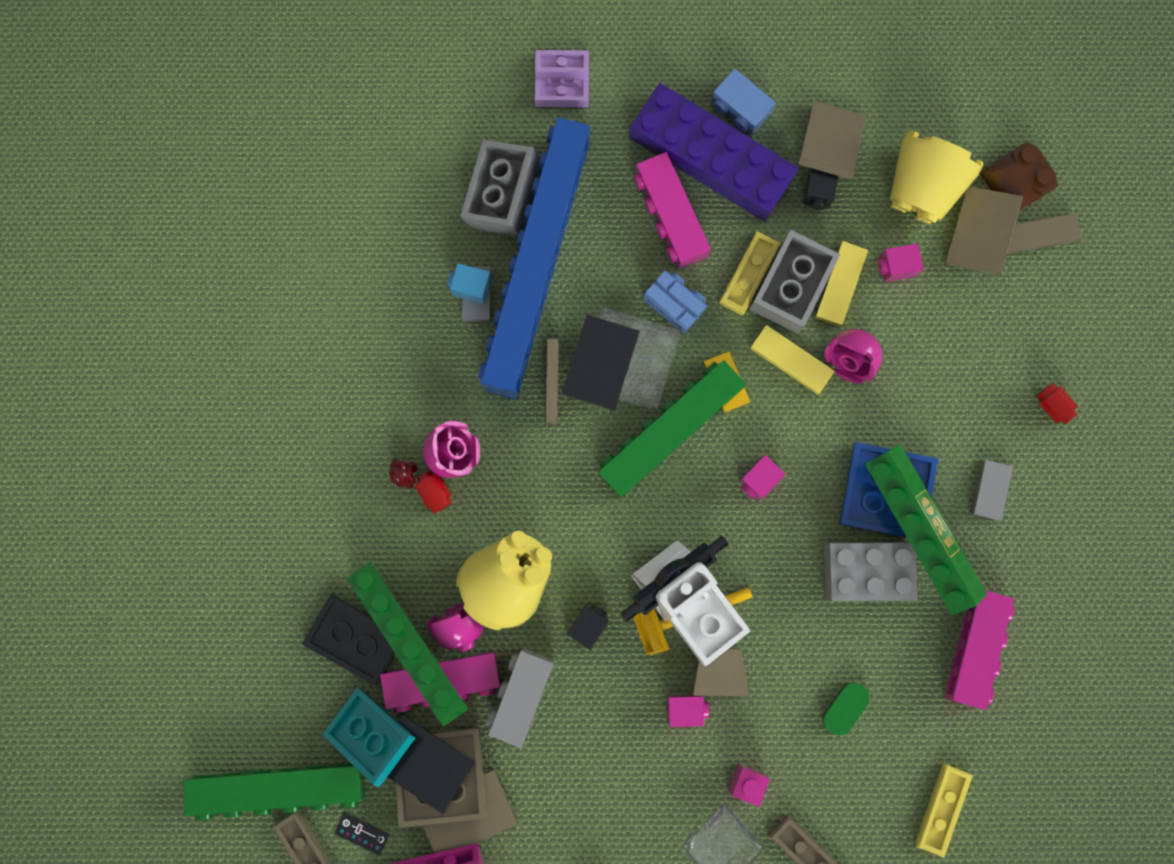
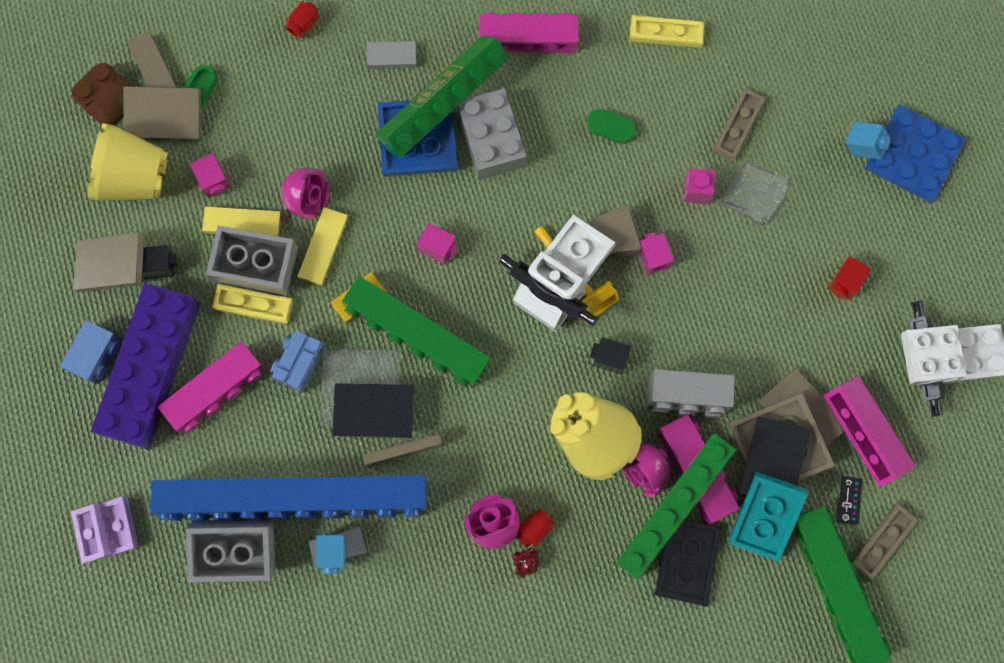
camera: 105 degrees left, 5 degrees down
(1011, 283) = (205, 79): none -> green tile

